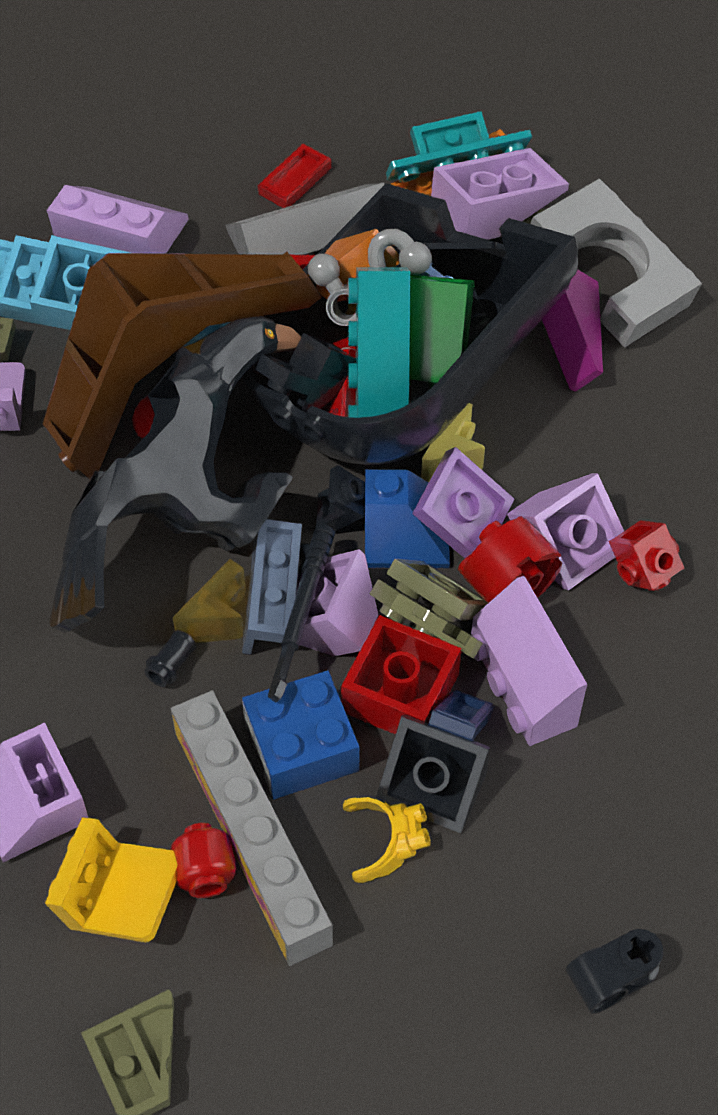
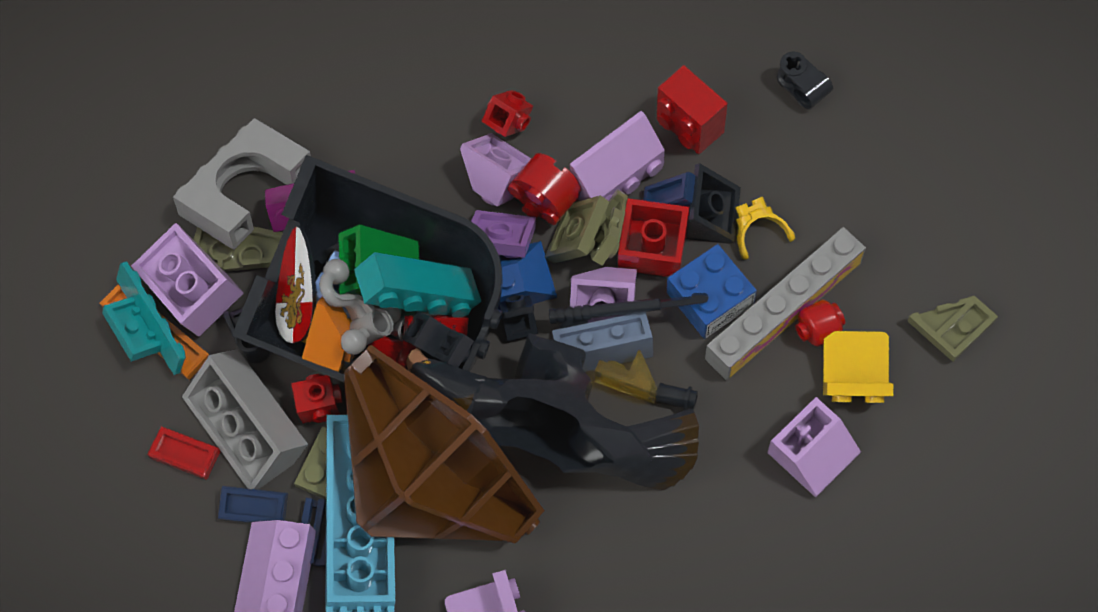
camera: 100 degrees left, 10 degrees up
(207, 220) = (252, 504): none -> dark blue tile
(590, 777) = (691, 110): none -> red brick

